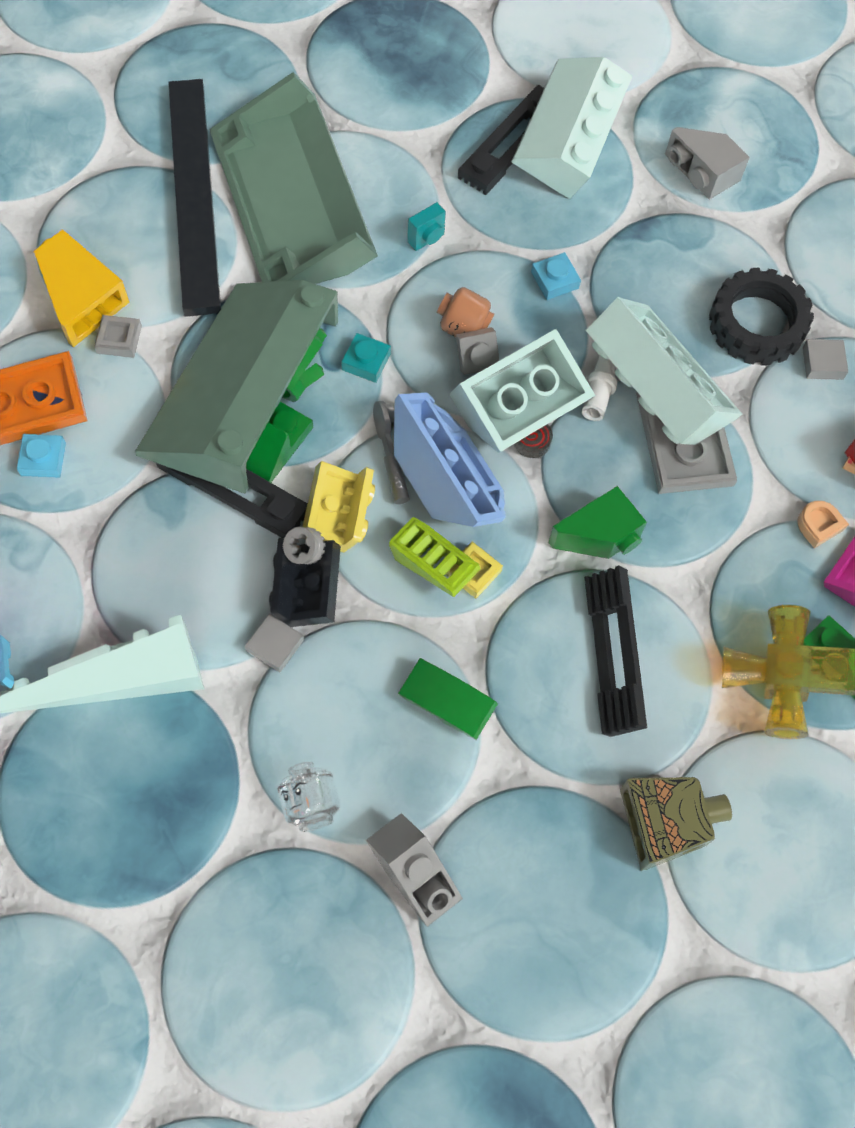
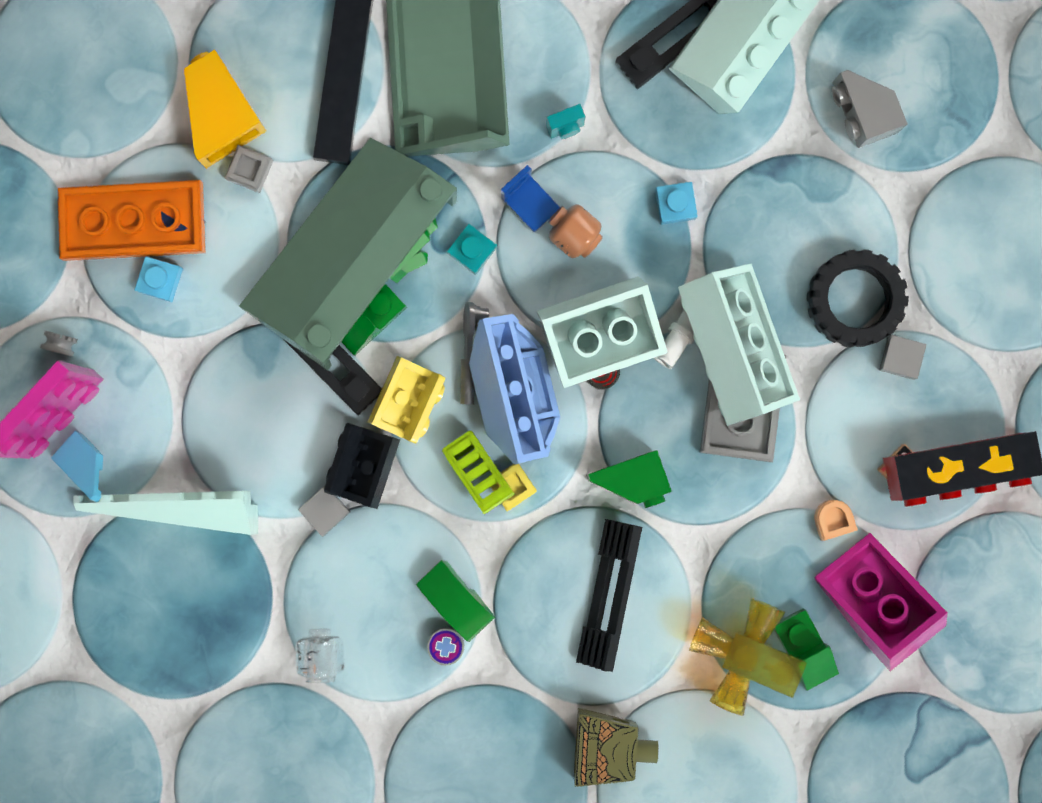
camera: 15 degrees right, 20 degrees up
(313, 540) = (374, 439): light grey bush -> none
(408, 299) = (528, 200): none -> blue bracket
(414, 868) = (389, 734): light grey slope -> none
(450, 755) = (445, 646): none -> tile
(477, 350) = (575, 272): light grey plate -> none

